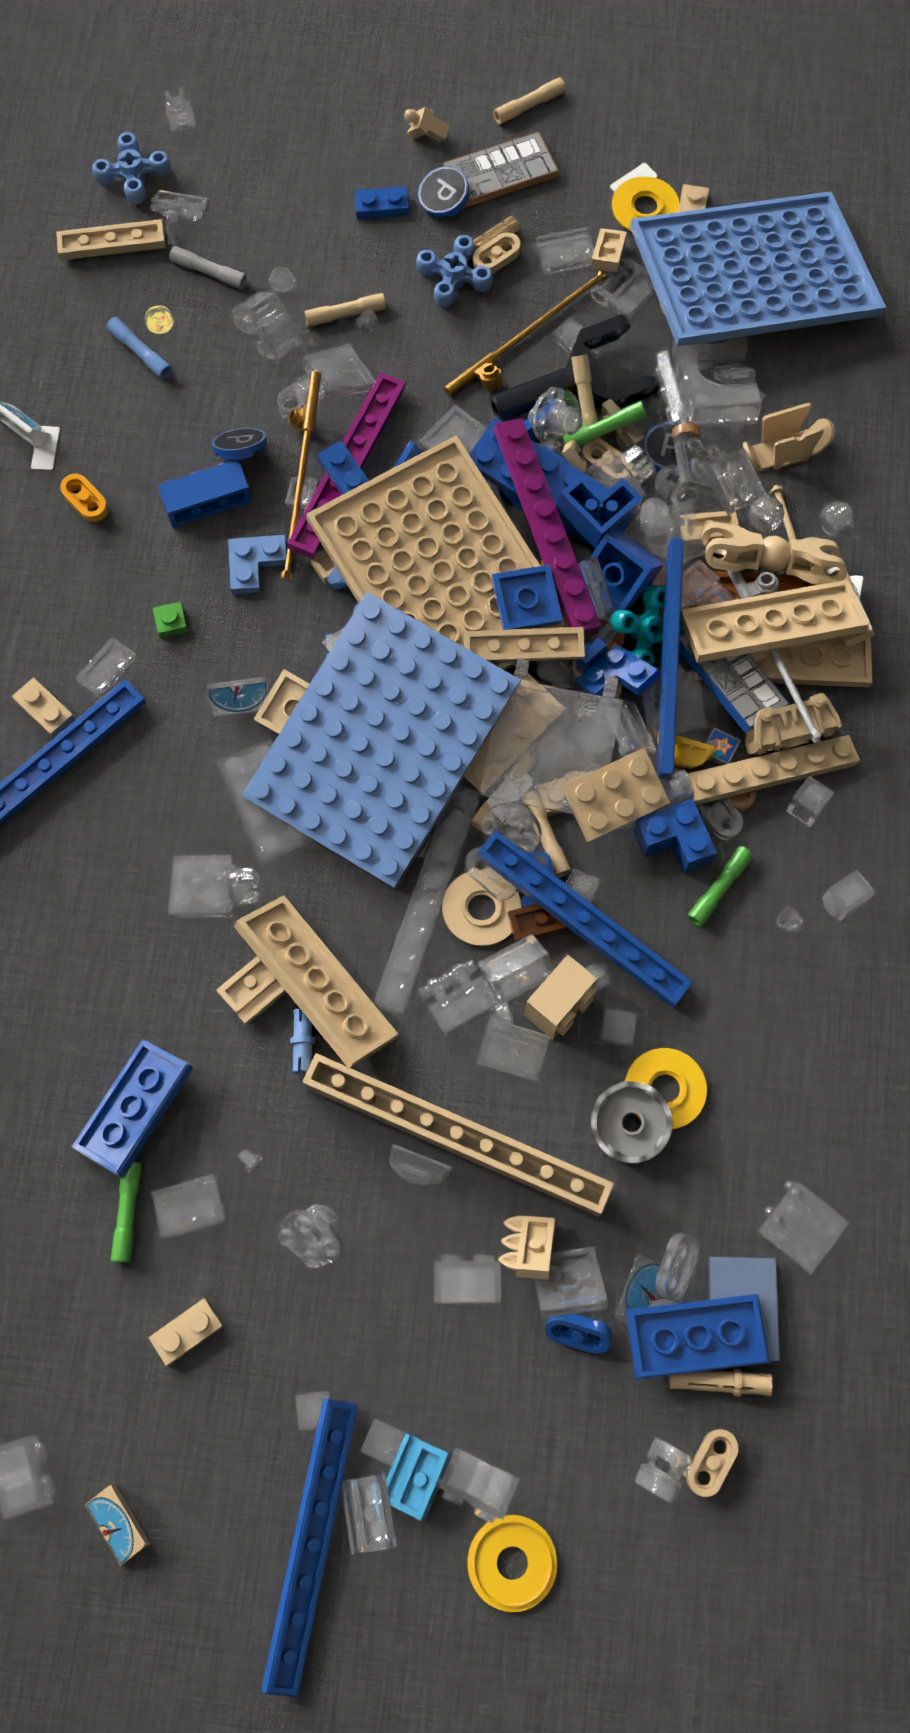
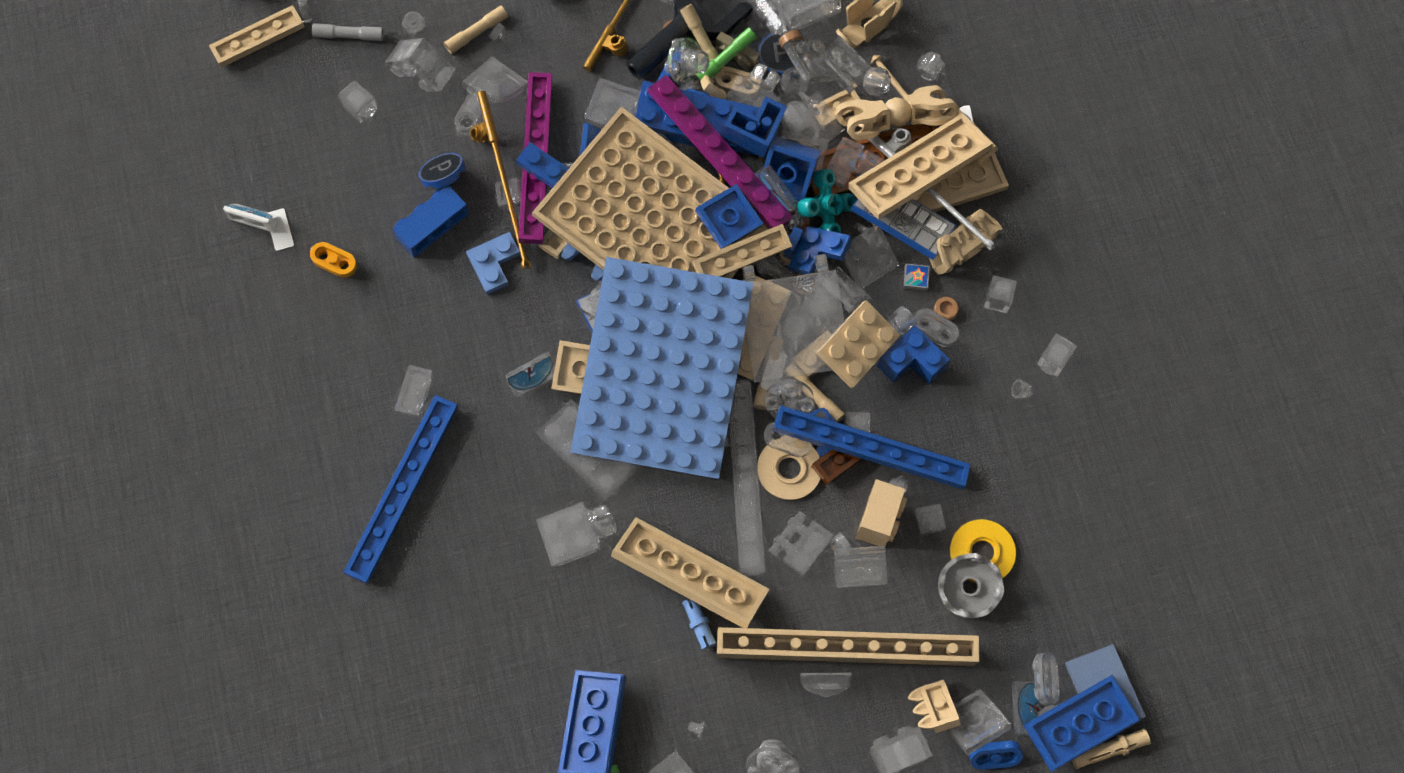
camera: 25 degrees left, 0 degrees up
(43, 707) = (377, 441): tan plate -> none
(128, 338) = (308, 114): medium blue piece -> none
(159, 319) = (326, 89): clear tile -> none
(170, 619) = (447, 333): bright green plate -> none
(184, 341) = (357, 101): none -> clear brick
(251, 990) = (643, 599): tan plate -> none
(516, 968) = (838, 504): clear brick -> none
(670, 658) = (856, 223): blue tile -> none
(691, 752) = (890, 291): yellow plate -> none
(709, 901) = (957, 397): bright green piece -> none
(773, 769) = (963, 279): tan plate -> none
(803, 1226) = (1123, 613): clear plate -> none

